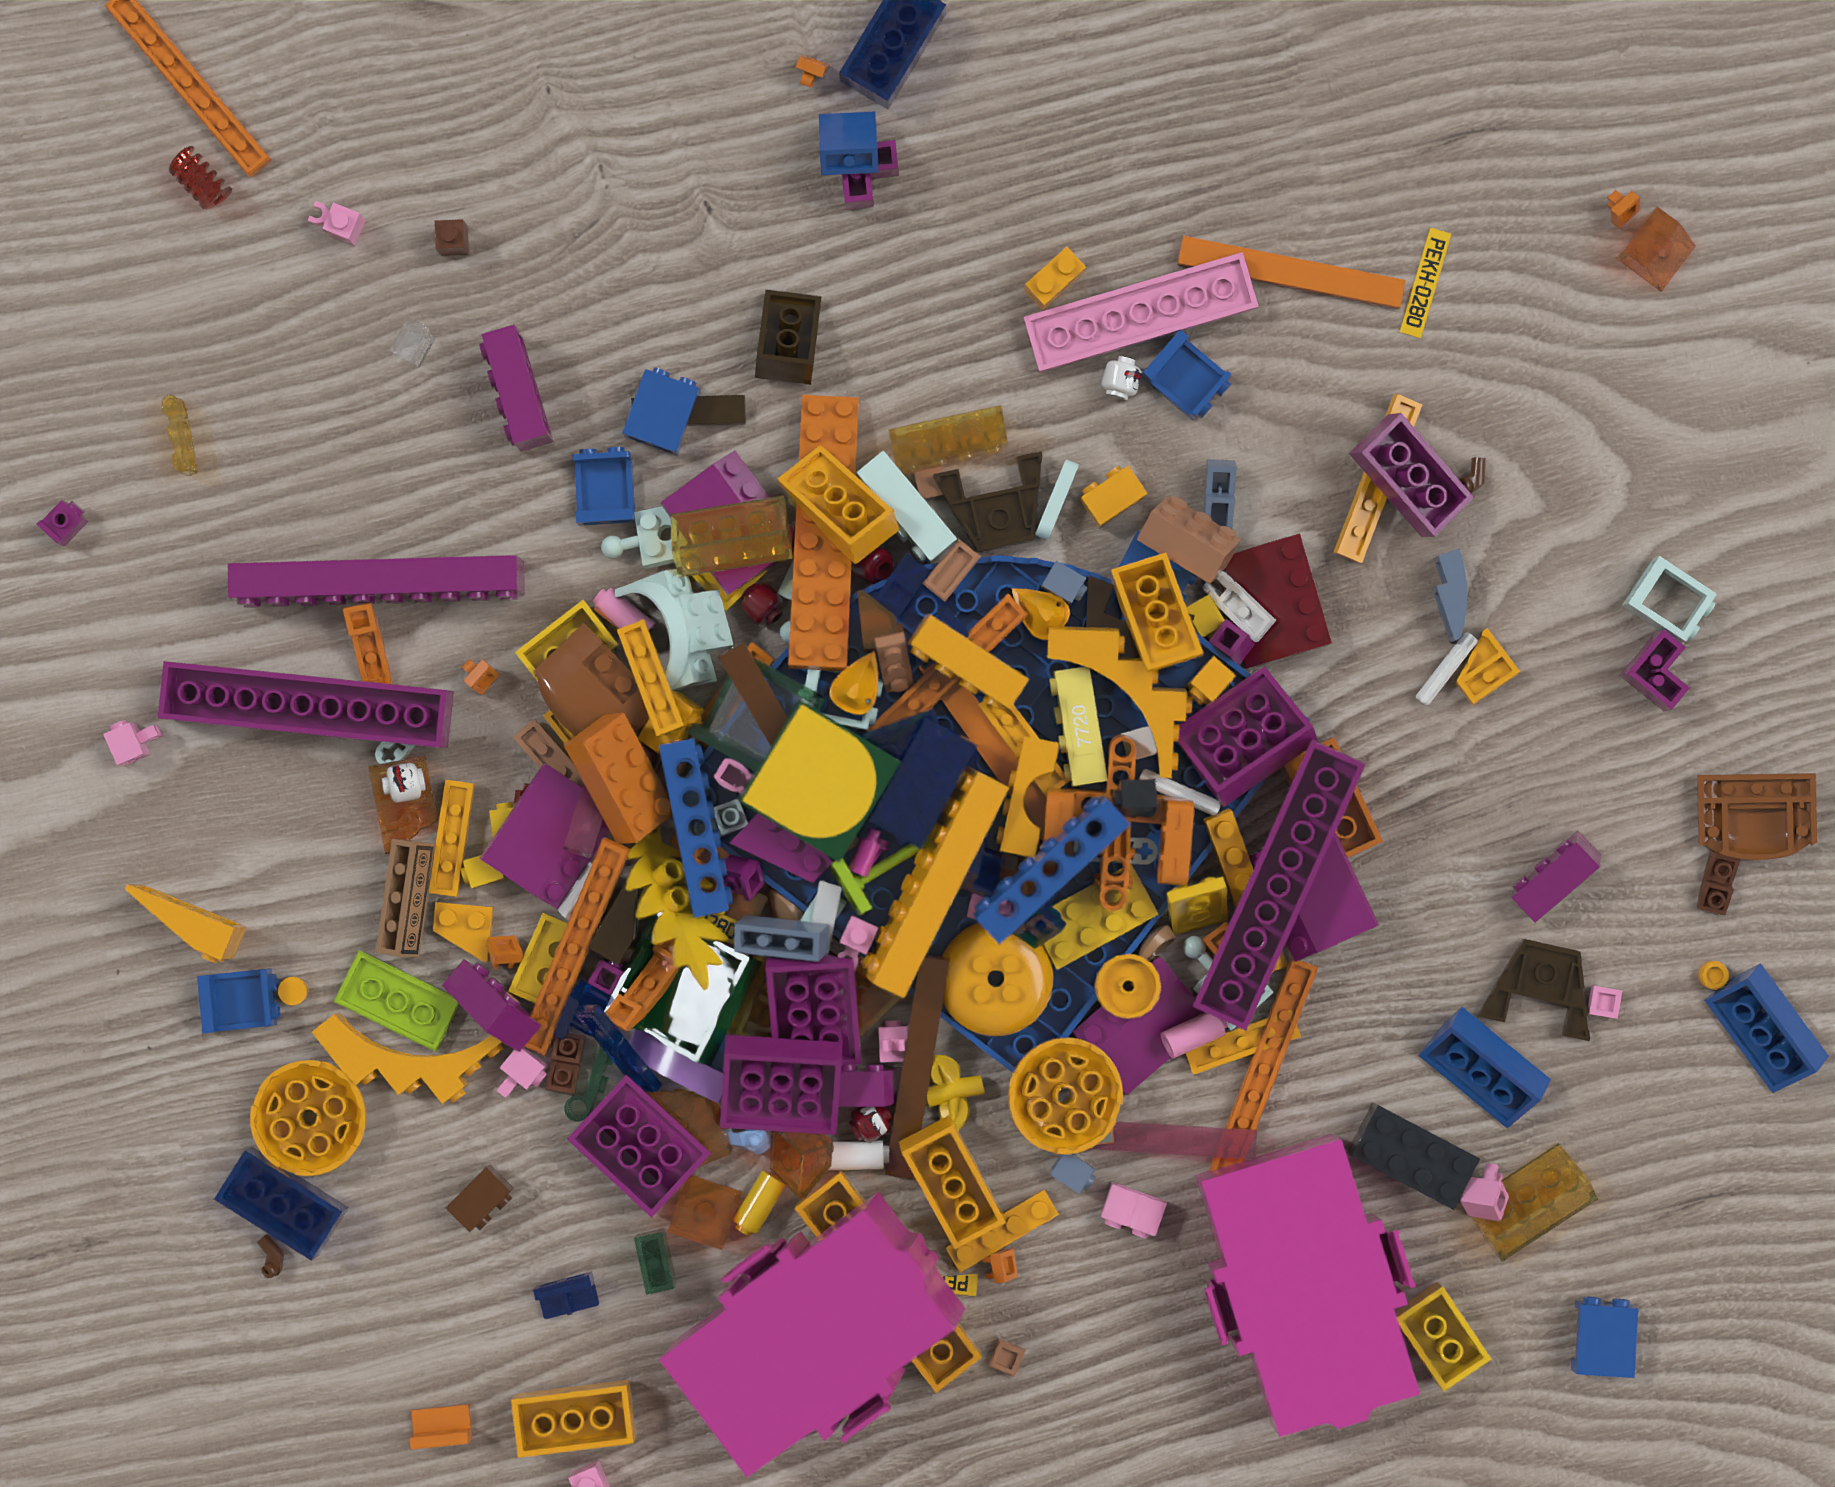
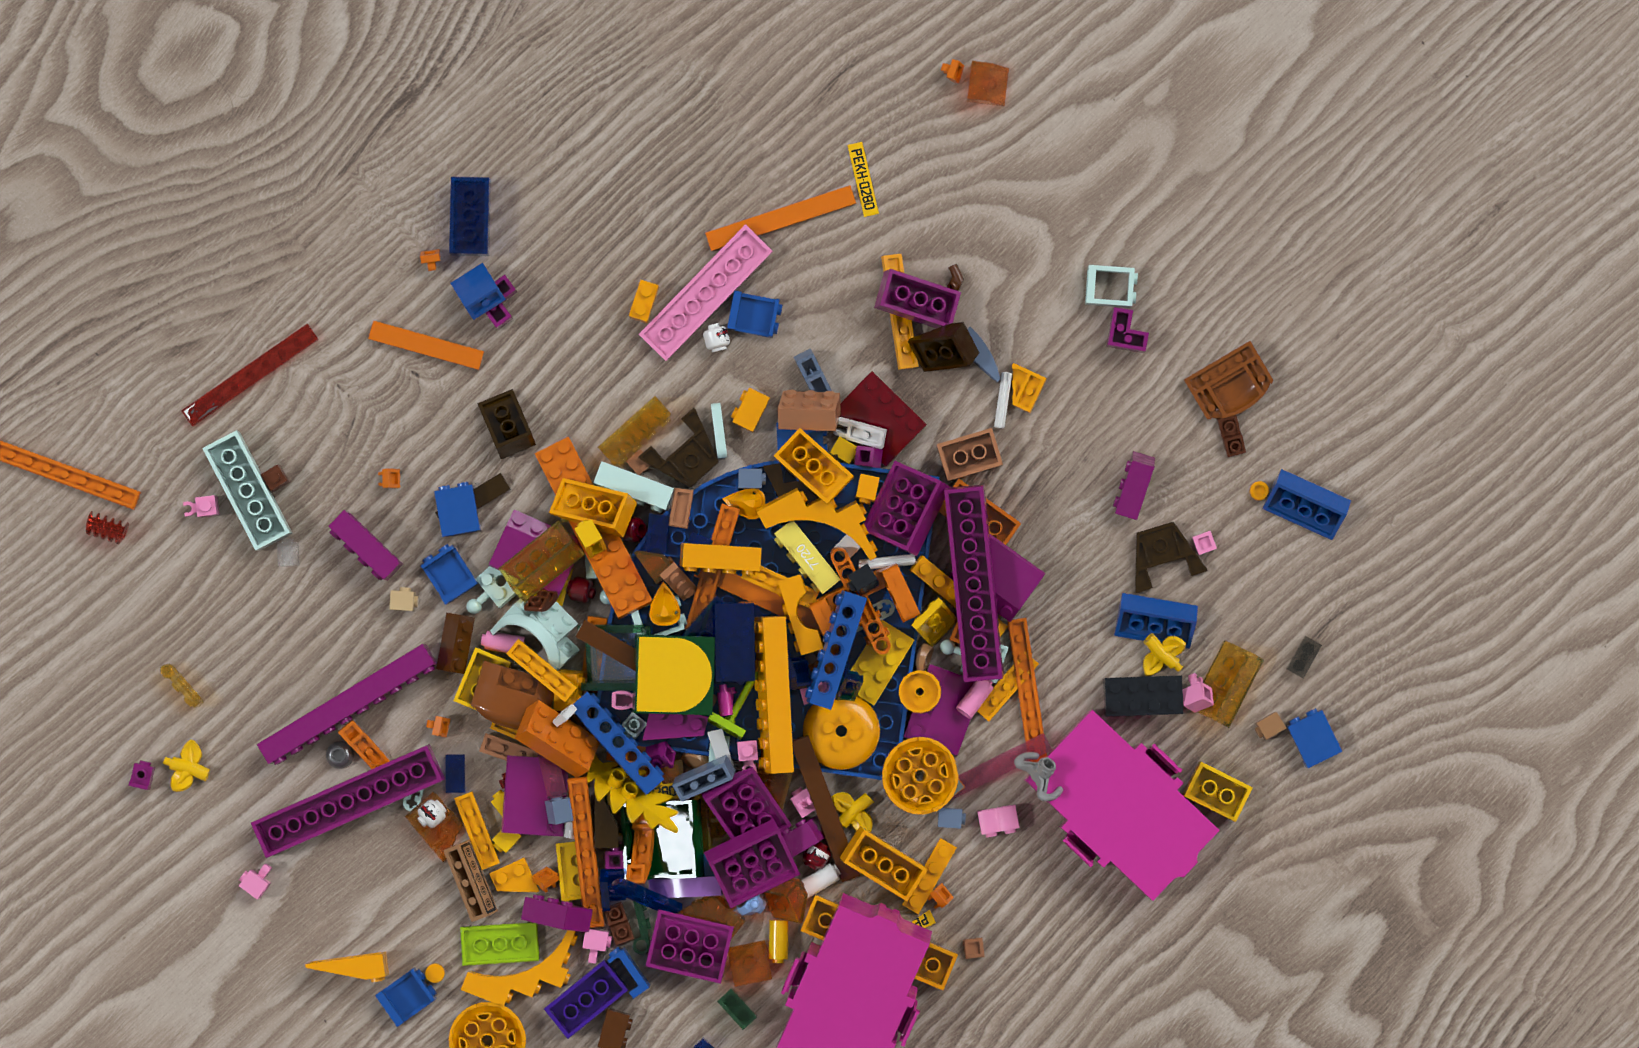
camera: 35 degrees left, 0 degrees up
(126, 544) = (186, 767): none -> yellow plant
(331, 640) = (339, 755): none -> flat silver piece
(406, 232) = (247, 490): none -> light aqua brick
(466, 748) = (455, 773): none -> clear blue plate
(467, 1136) = (586, 998): none -> dark purple brick
(495, 88) = (250, 375): none -> clear red tile
(526, 487) = (403, 600): none -> tan brick
(549, 1133) = (633, 969): none -> blue panel
(561, 580) = (455, 643): none -> reddish brown brick
(569, 872) = (559, 810): none -> sand blue brick
(599, 321) = (390, 478): none -> orange tile
(646, 752) = (564, 715): none -> white tile
(701, 588) = (542, 601): none -> copper slope
(743, 178) = (426, 345): none -> orange tile
(811, 540) = (590, 538): none -> yellow brick
(1226, 1184) = (1040, 773): none -> light grey piece
(1364, 714) = (969, 455): none -> nougat brick
(1411, 557) = (944, 348): none -> dark brown slope
(1469, 1115) = (1162, 654): none -> yellow plant
(1556, 1289) = (1269, 726): none -> medium nougat brick
(1651, 1224) = (1304, 657): none -> clear smoke plate

